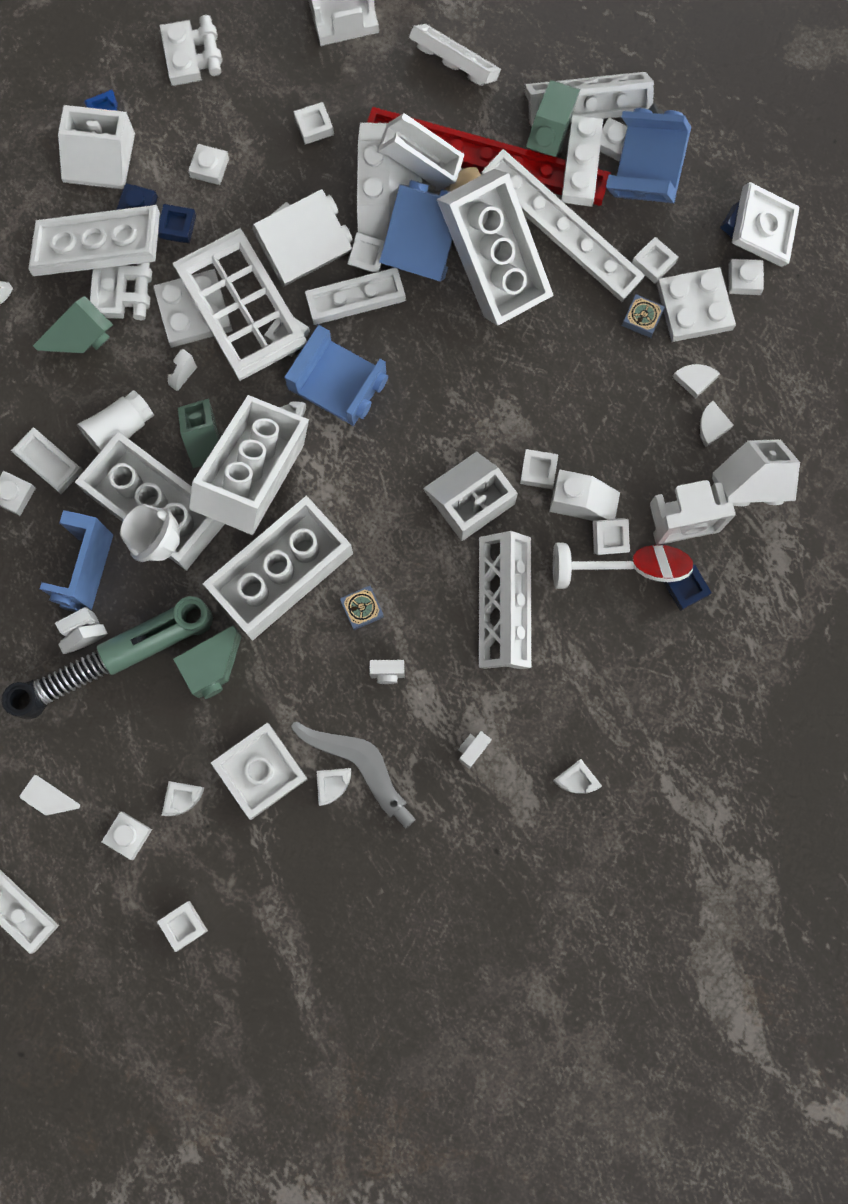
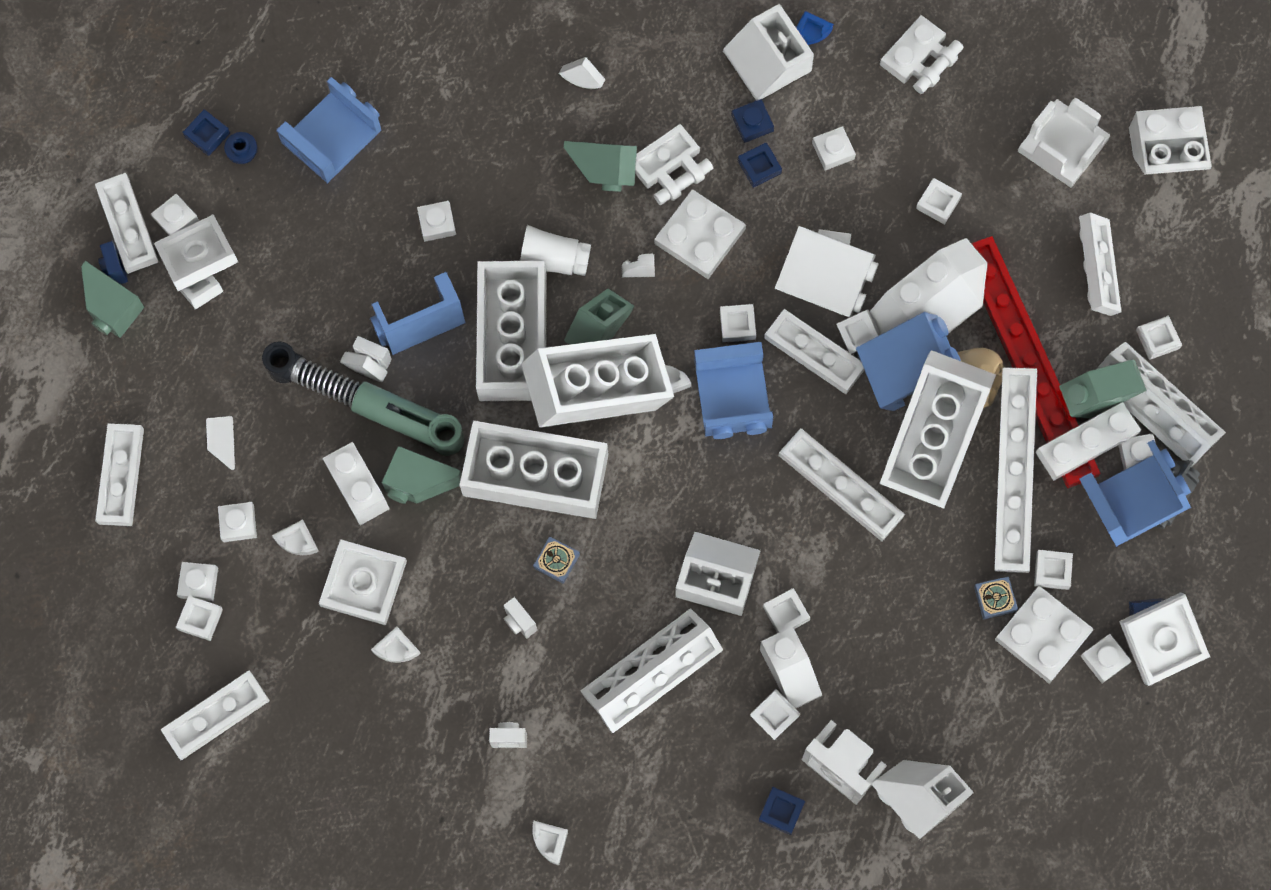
camera: 55 degrees right, 5 degrees down
(47, 460) = (484, 225): white tile -> none
(94, 240) = (691, 116): white tile -> none
(149, 905) = (197, 581): none -> white plate
(150, 533) = (478, 350): white piece -> none
(174, 715) = (356, 483): none -> white brick
(268, 353) = (706, 322): white piece -> none
(273, 973) = (215, 715): none -> white plate
(368, 761) = (435, 664): light grey piece -> none
(421, 151) = (989, 333): white window -> none
(471, 357) = (841, 484): none -> white tile
(540, 60) = (1158, 337): none -> white tile
(653, 562) = (778, 766): piece -> none
(696, 378) = (976, 684): white tile -> none
(713, 424) = (946, 728): white tile -> none

